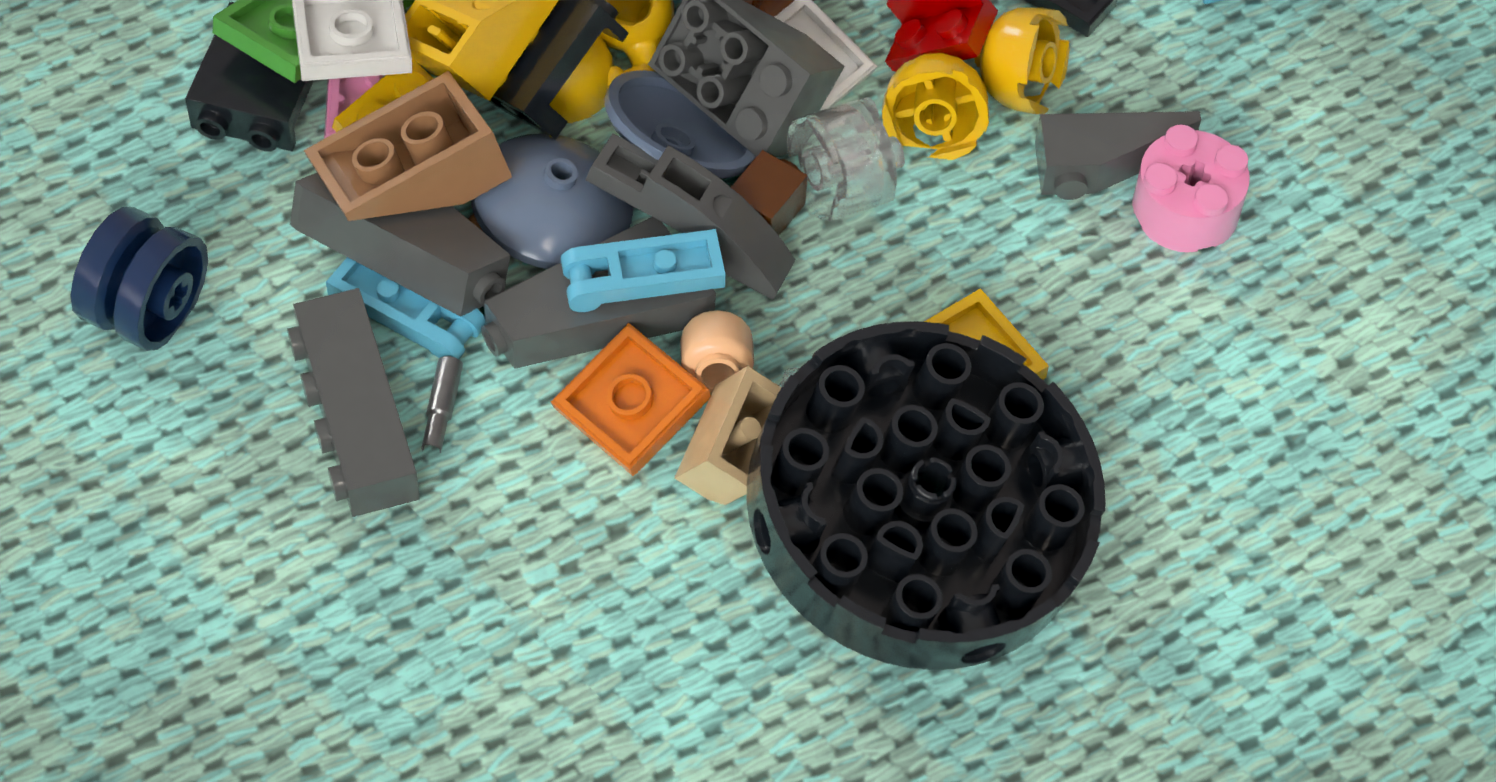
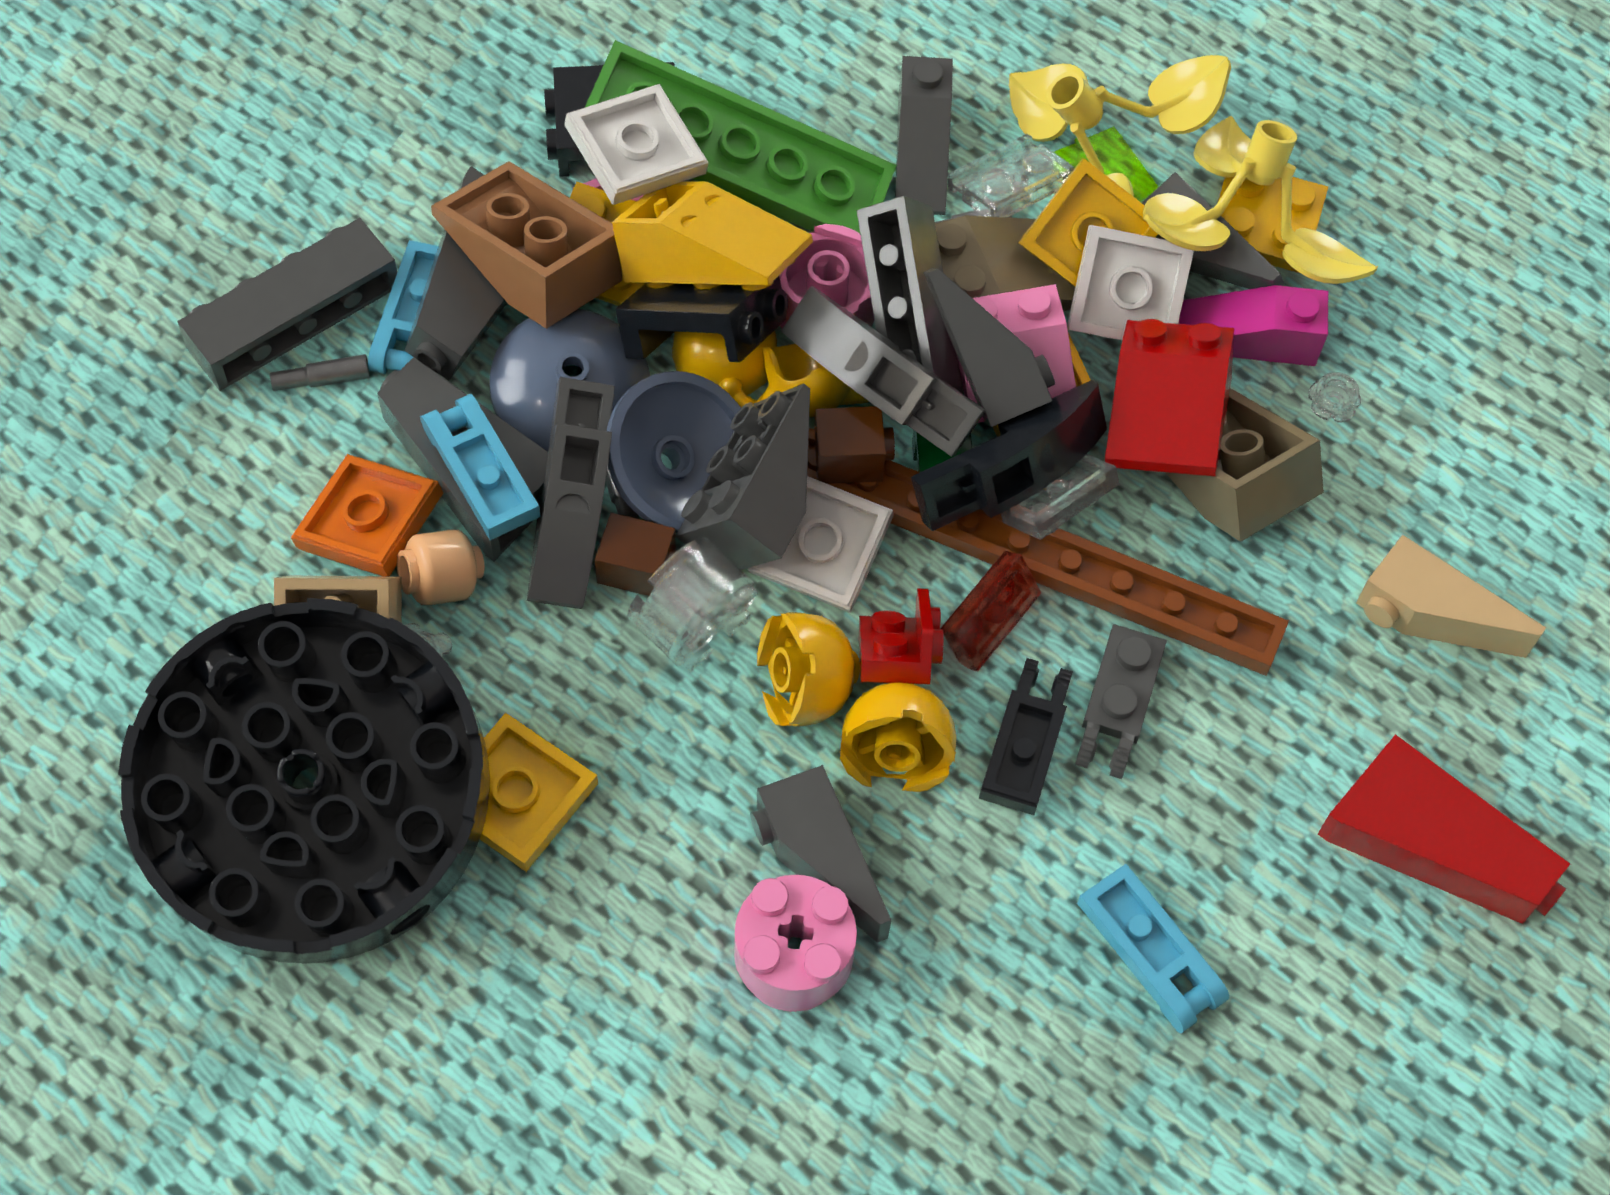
camera: 70 degrees right, 5 degrees up
(139, 278) = (344, 99): dark blue wheel -> none

